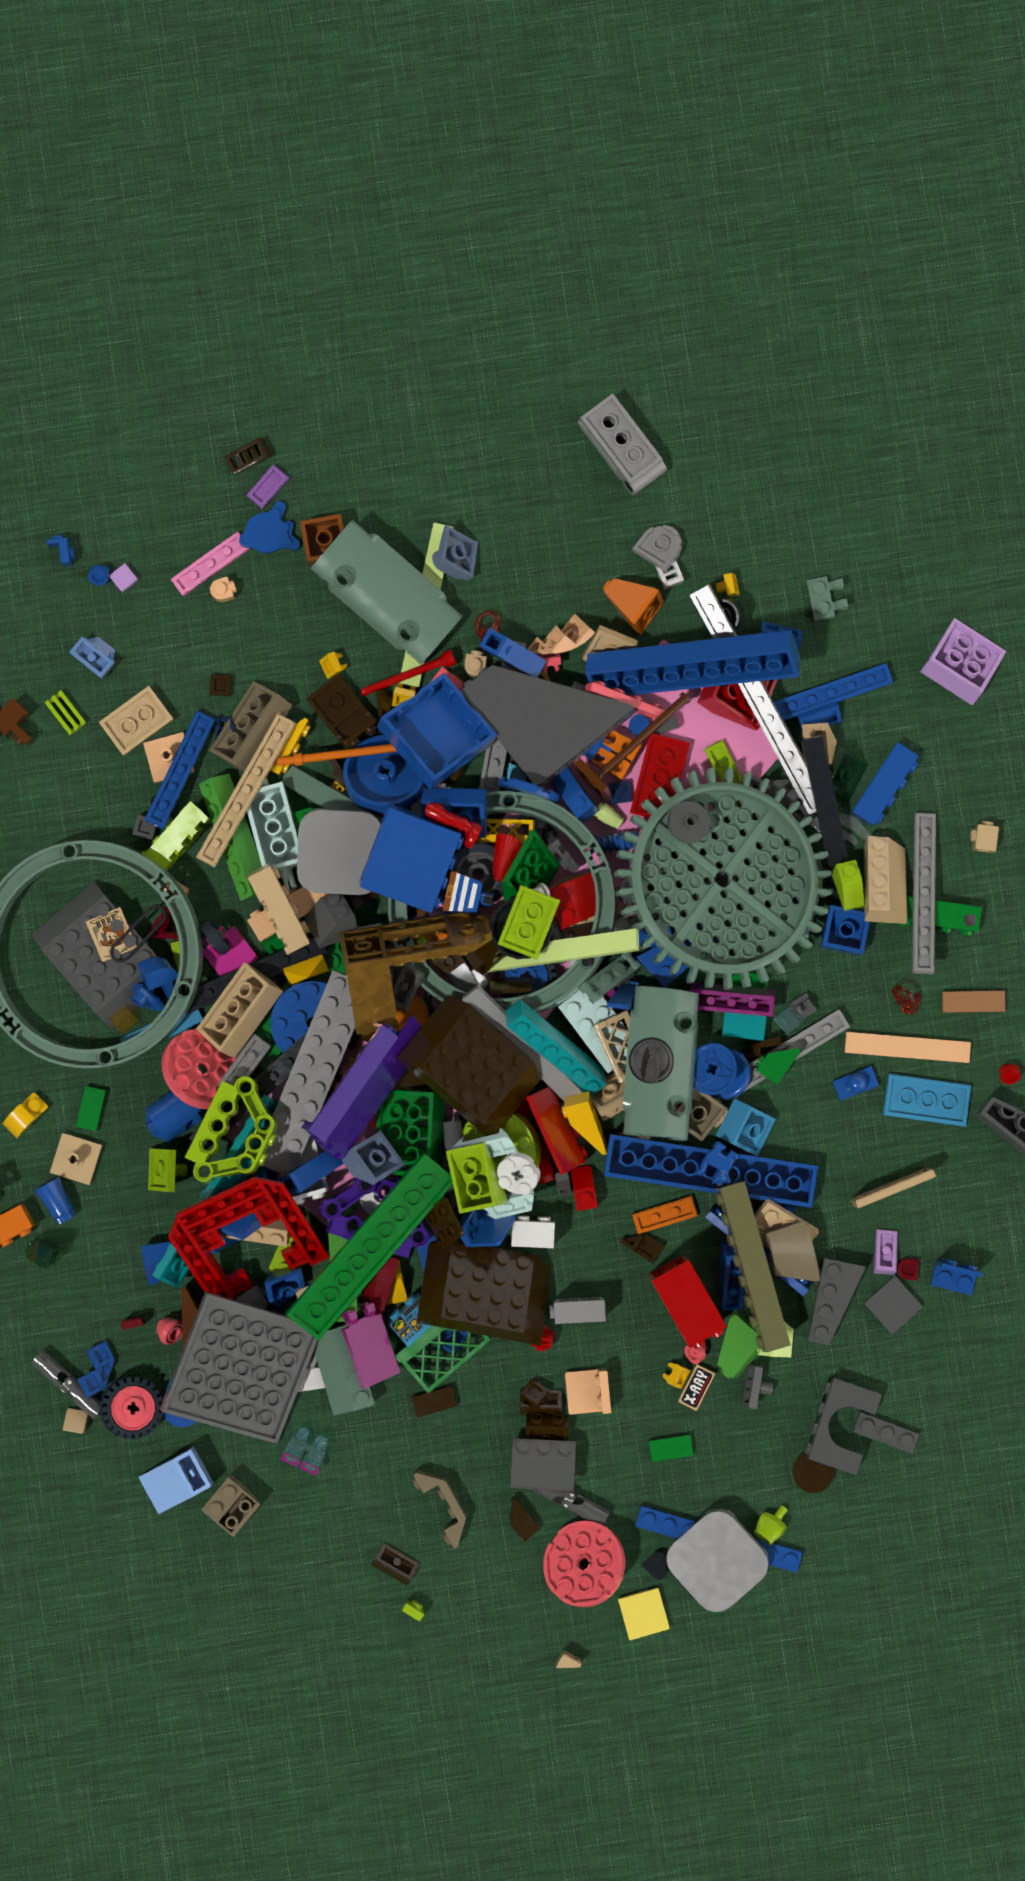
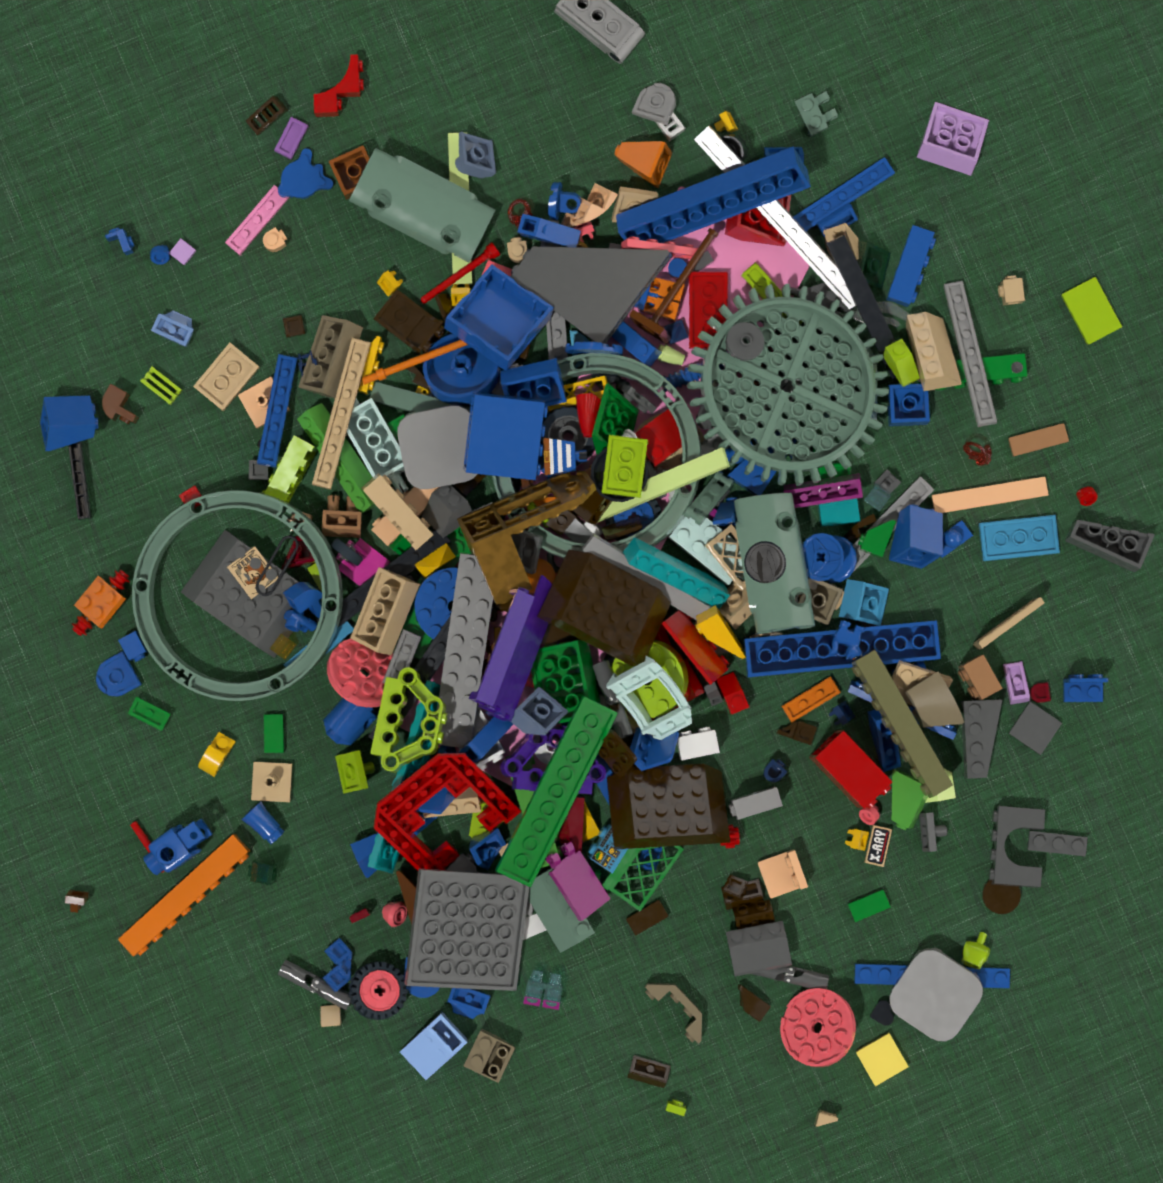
camera: 10 degrees left, 0 degrees up
(67, 836) = (191, 494): none -> red tile
(216, 904) = (341, 523): none -> medium nougat brick
(224, 1443) = (468, 1002): none -> blue slope
(316, 460) = (327, 103): none -> red arch
(440, 815) = (519, 390): red piece -> none
(475, 1178) = (634, 706): lime slope -> none
(513, 1183) = (679, 686): white plate -> none
(531, 625) = (558, 201): none -> blue tile
(607, 1280) = (774, 770): none -> dark blue plate
(694, 1237) = (843, 713): none -> dark blue tile
(820, 1072) = (917, 537): none -> blue slope
(847, 1237) = (979, 677): none -> medium nougat brick

